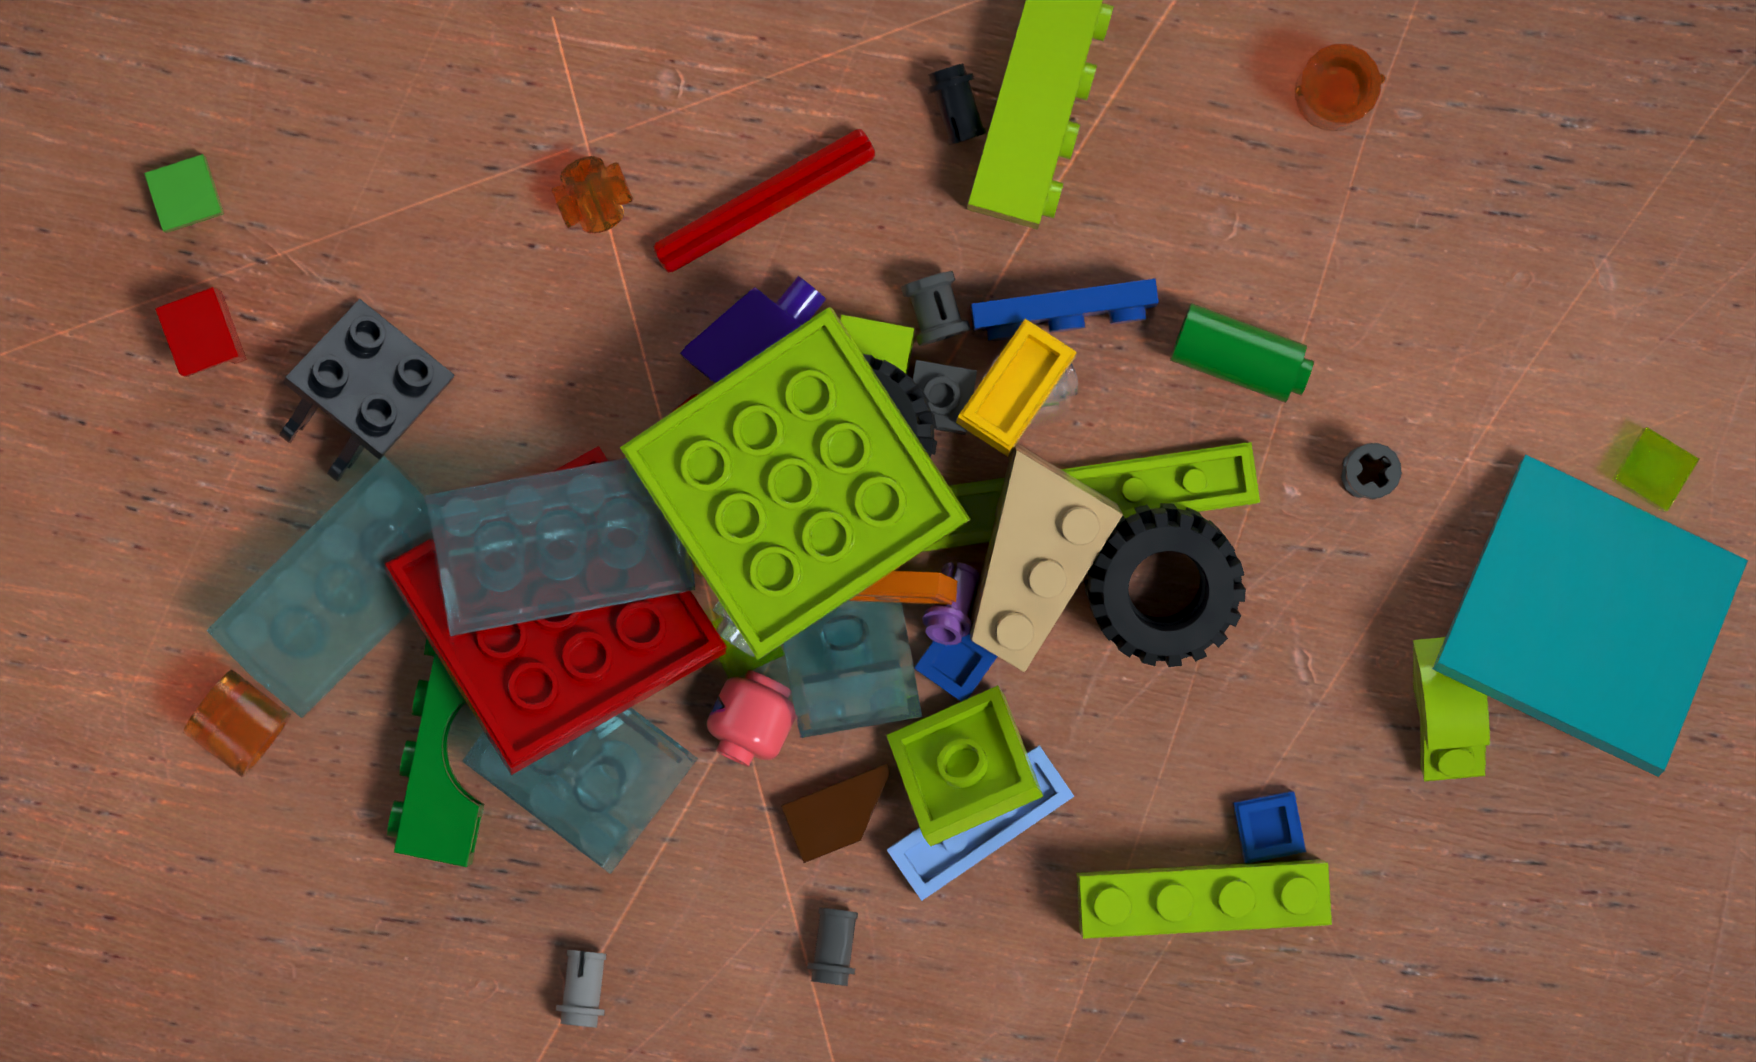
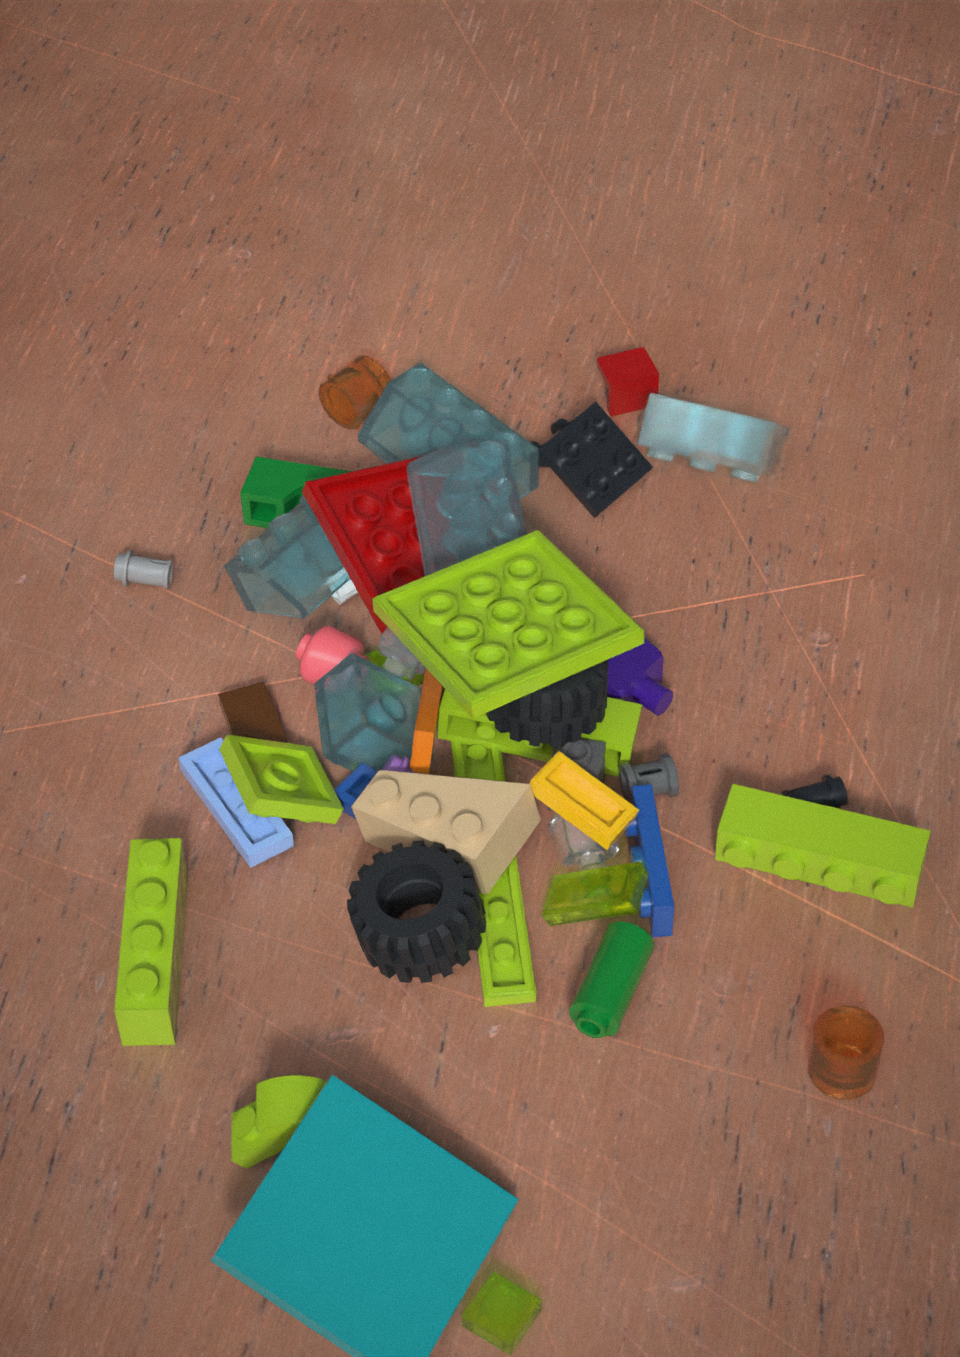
camera: 90 degrees right, 40 degrees down
(184, 193) = (725, 382): bright green tile -> none
(310, 211) = (711, 437): none -> clear light blue slope
(592, 194) = (731, 576): clear orange gear -> none
(764, 200) = (733, 685): red axle -> none
(833, 947) = (150, 711): dark grey pin -> none
(1124, 373) = (595, 894): none -> clear neon green plate
(1269, 827) = (207, 1002): blue tile -> none
(1389, 475) = (502, 1077): dark grey bush -> none

